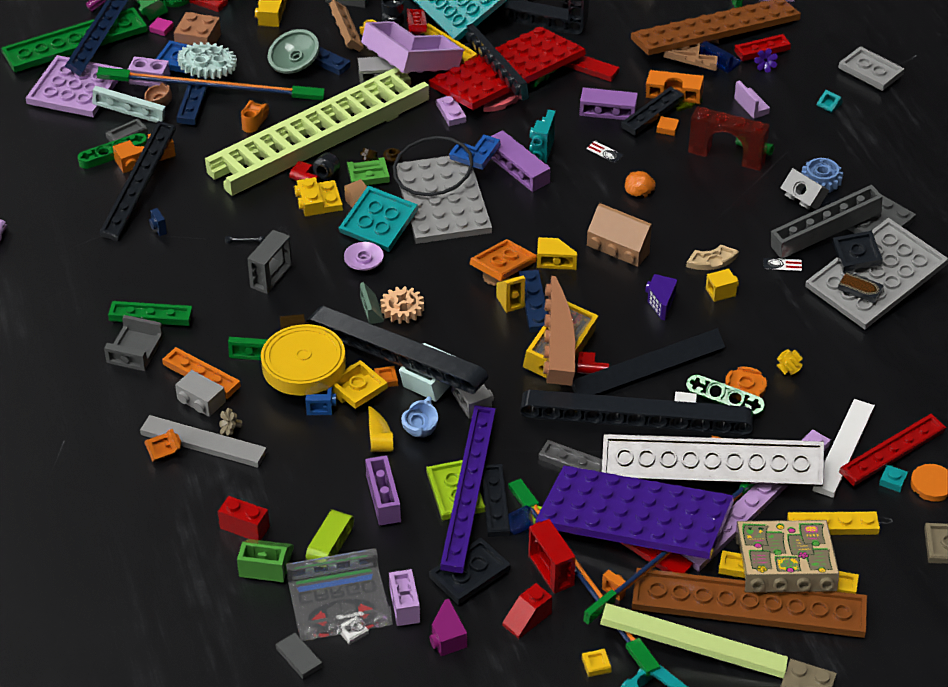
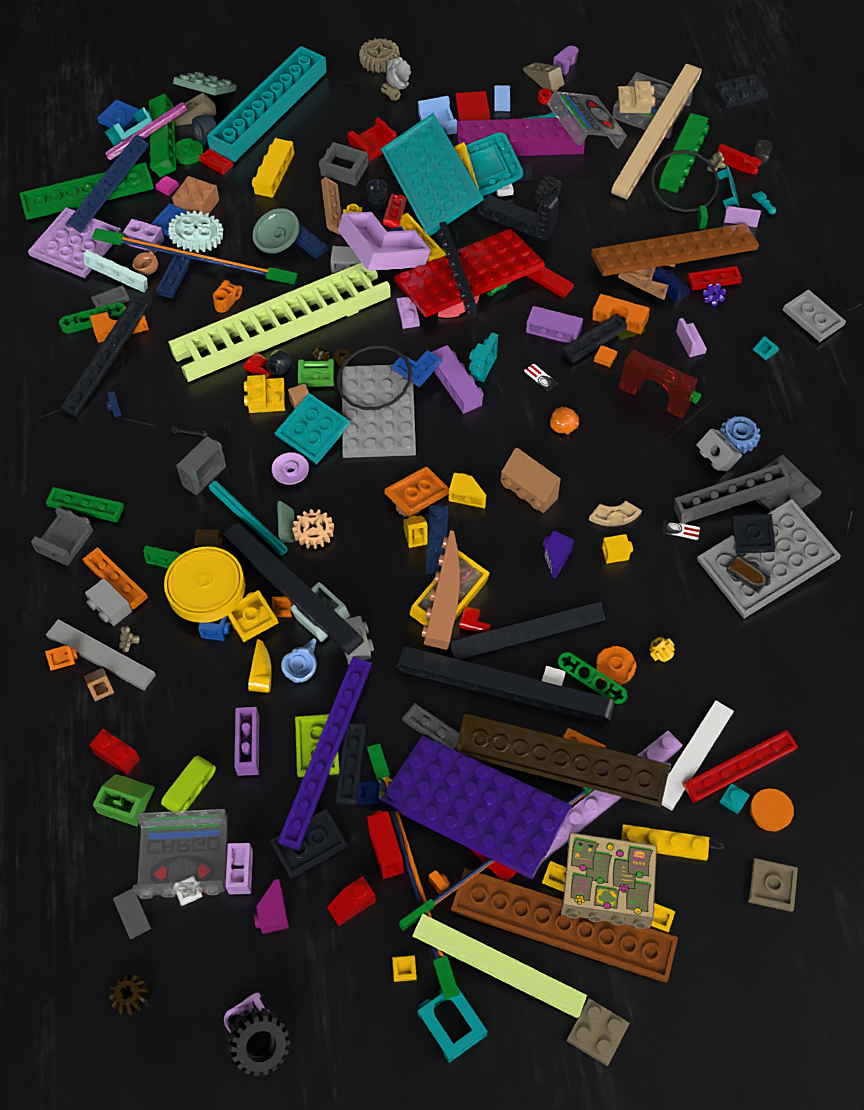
camera: 10 degrees right, 15 degrees up
(210, 465) = (99, 684): none -> medium nougat brick
(319, 299) = (248, 518): none -> teal axle

